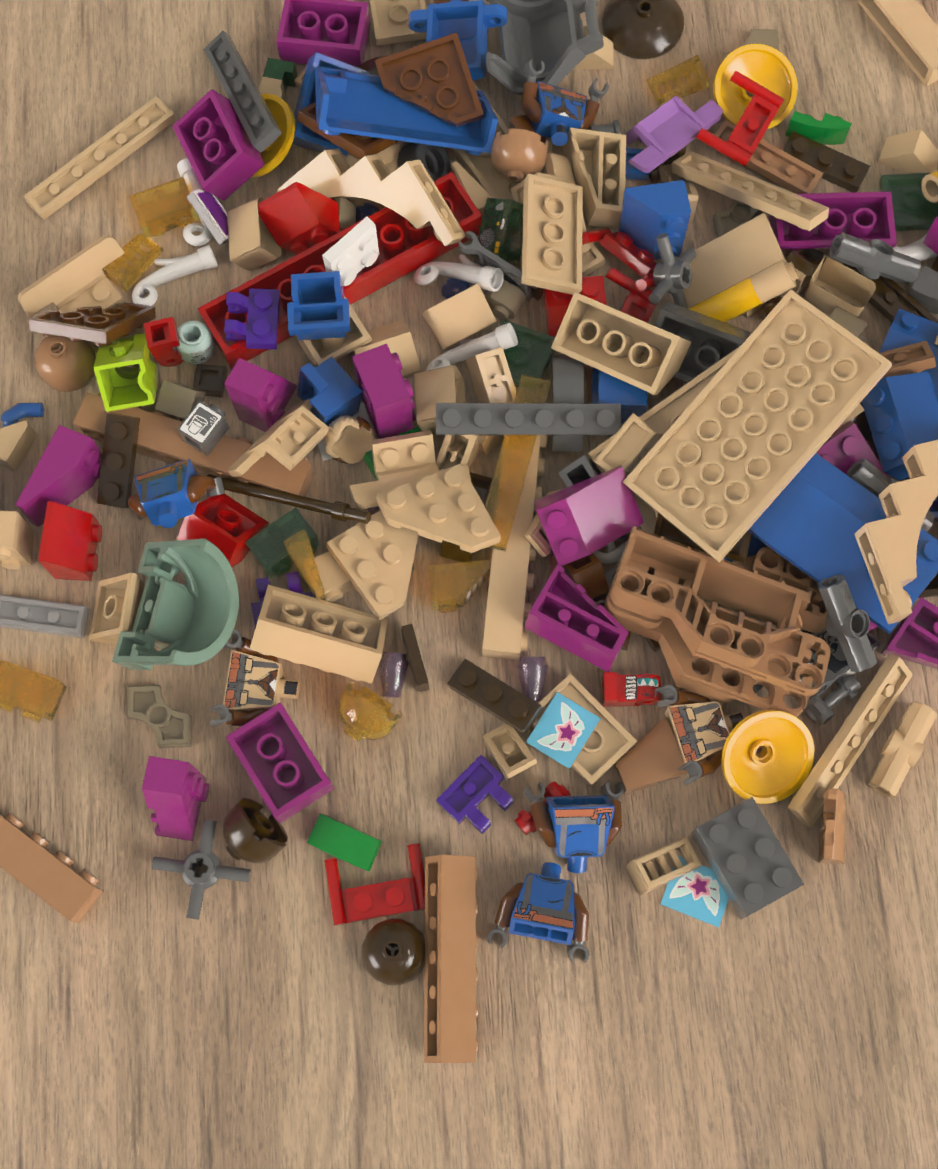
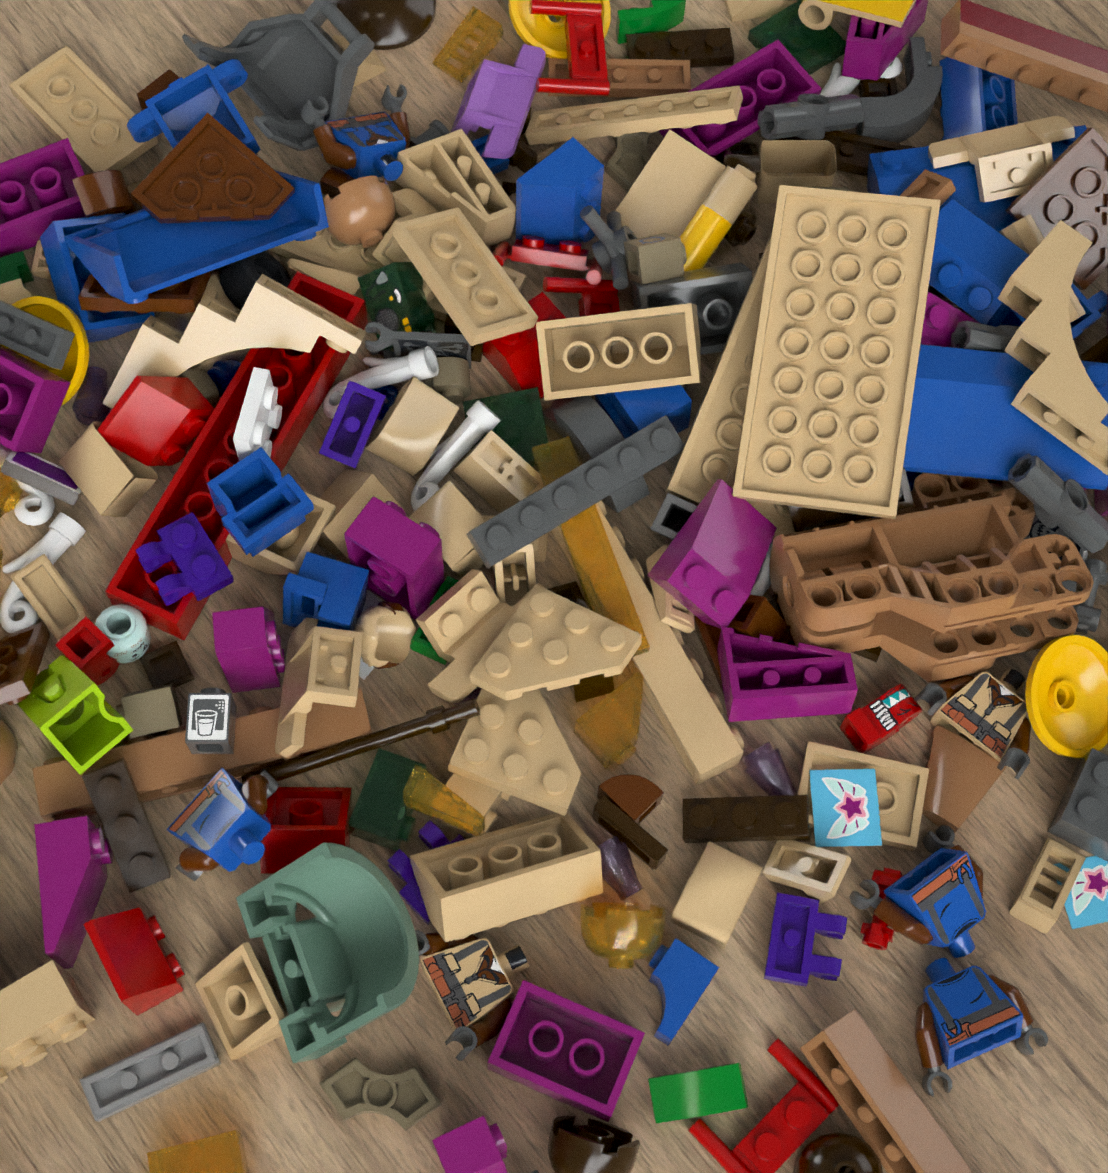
camera: 40 degrees left, 5 degrees down
(169, 292) = (50, 596): none -> tan tile
(277, 178) = (90, 397): none -> clear purple cone
(361, 51) = (103, 193): none -> reddish brown brick
(381, 771) = (681, 980): none -> blue arch
(420, 293) = (352, 424): none -> dark purple brick
(432, 637) = (632, 795): none -> reddish brown brick
(441, 731) = (716, 894): none -> tan piece
(625, 445) = (703, 455): tan tile -> none
(689, 295) = (655, 258): none -> dark tan brick

